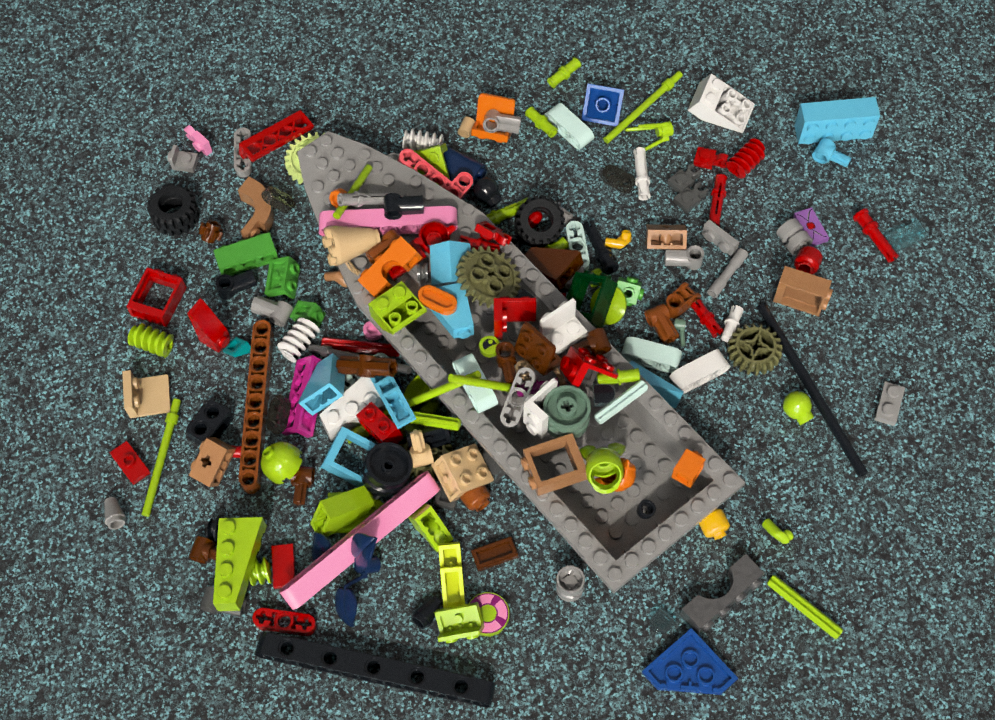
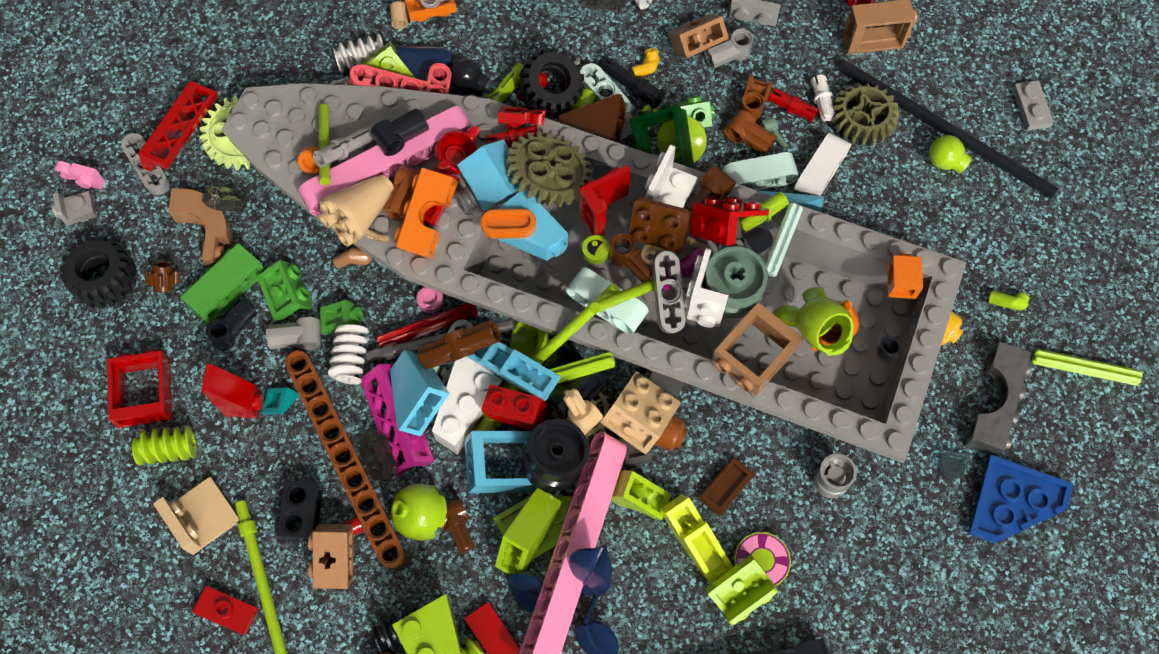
camera: 30 degrees left, 5 degrees up
(396, 308) = (463, 259): lime slope -> none
(425, 613) = (694, 598): black cone -> none
(720, 282) = (785, 30): light grey piece -> none

